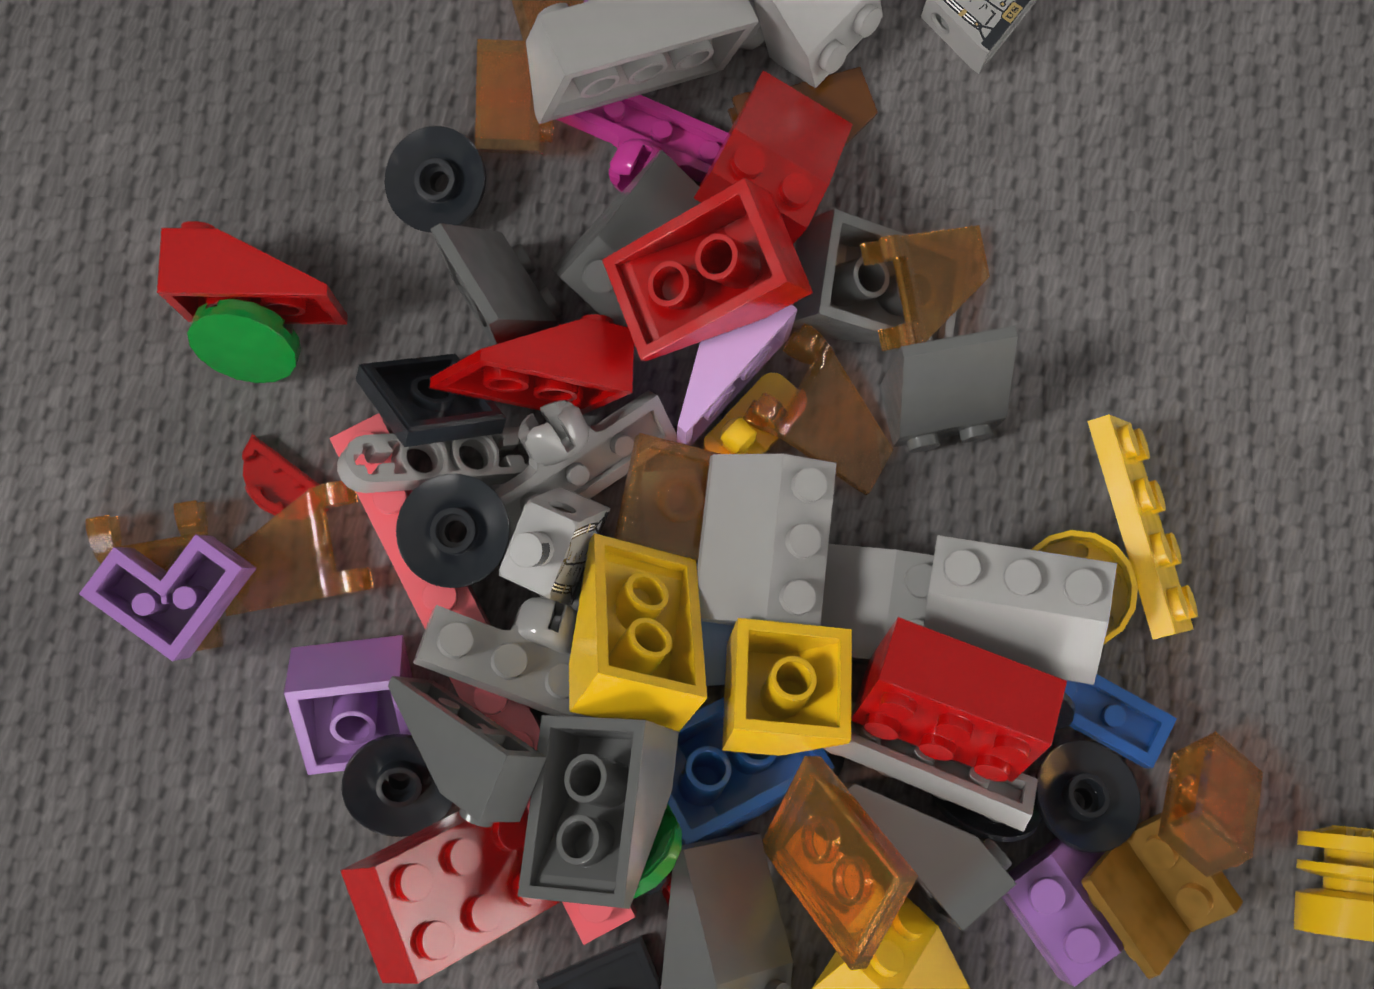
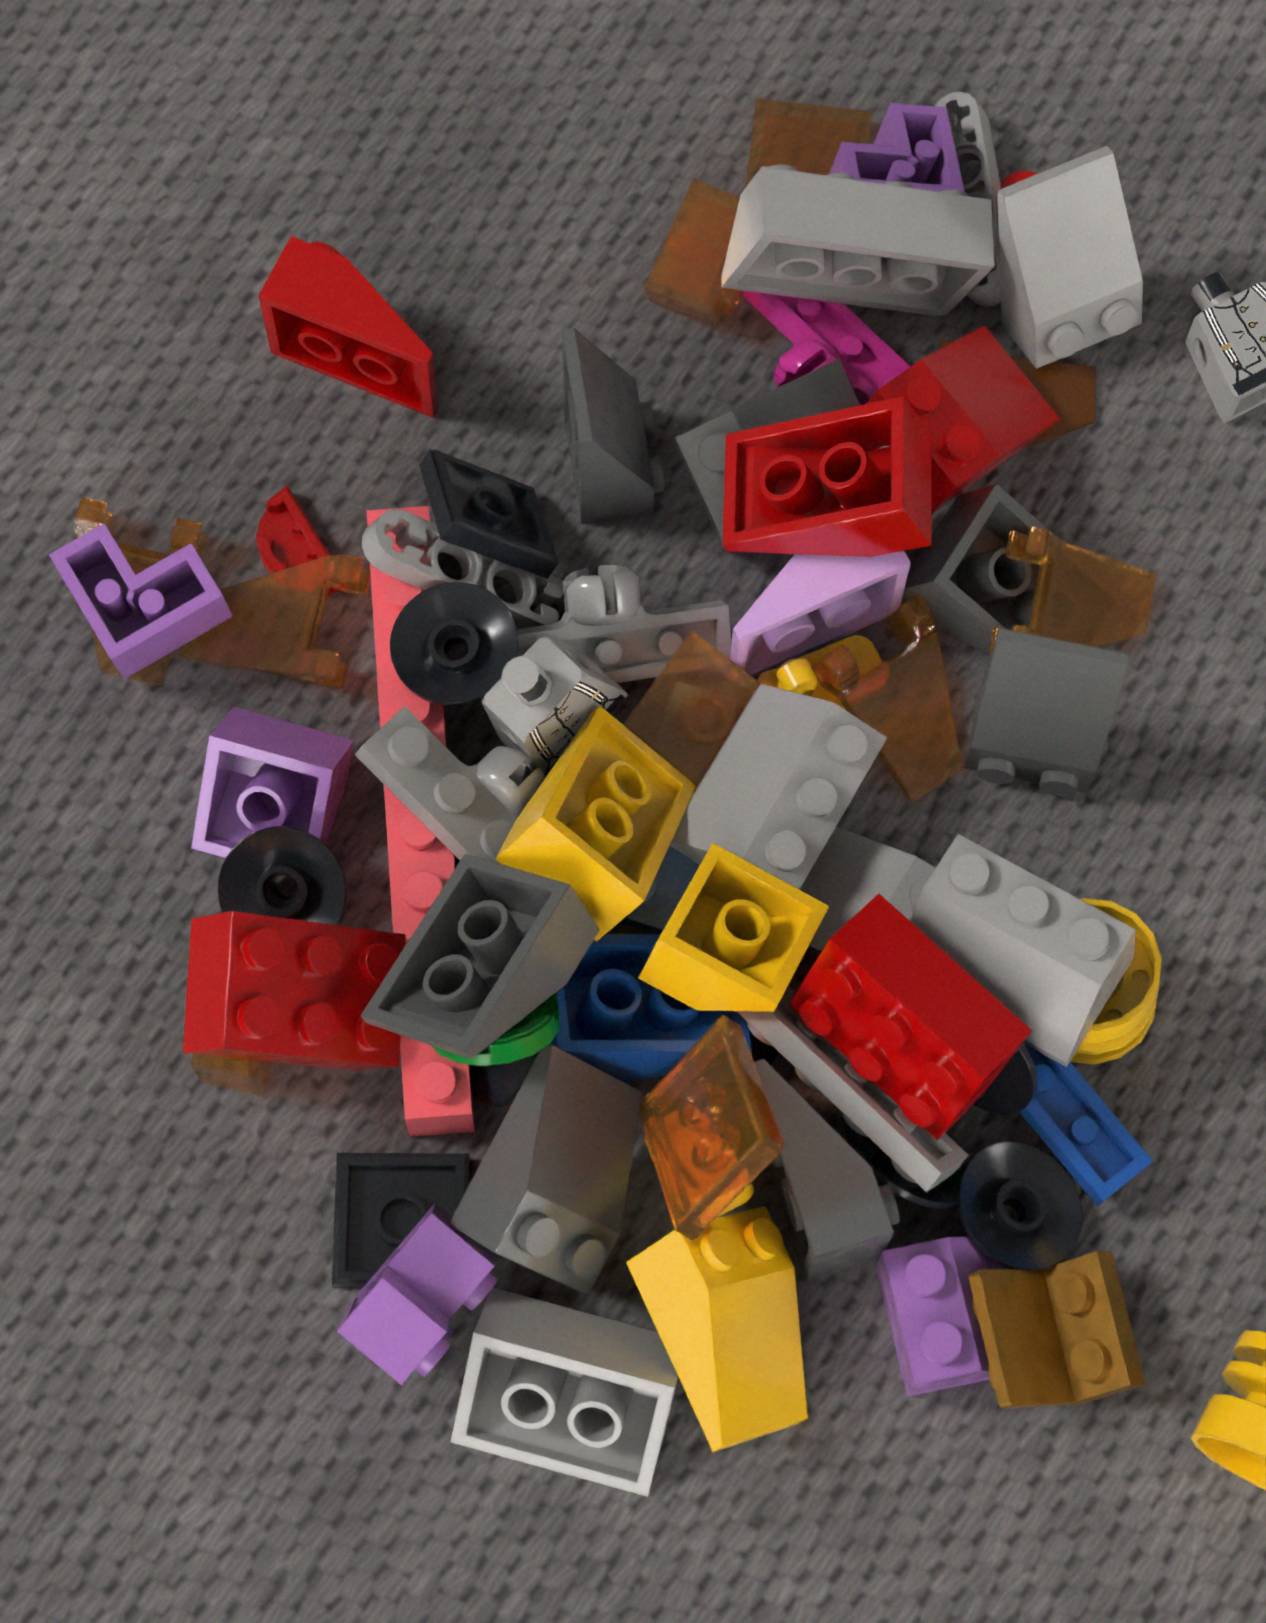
camera: 25 degrees right, 10 degrees down
(244, 341) = (321, 386): green tile -> none
(416, 167) = (583, 284): black dish -> none
(467, 753) = (372, 864): dark grey slope -> none
(572, 362) = (620, 519): red slope -> none
(1137, 513) = (1197, 945): yellow plate -> none
(1211, 805) = (1151, 1262): clear orange brick -> none

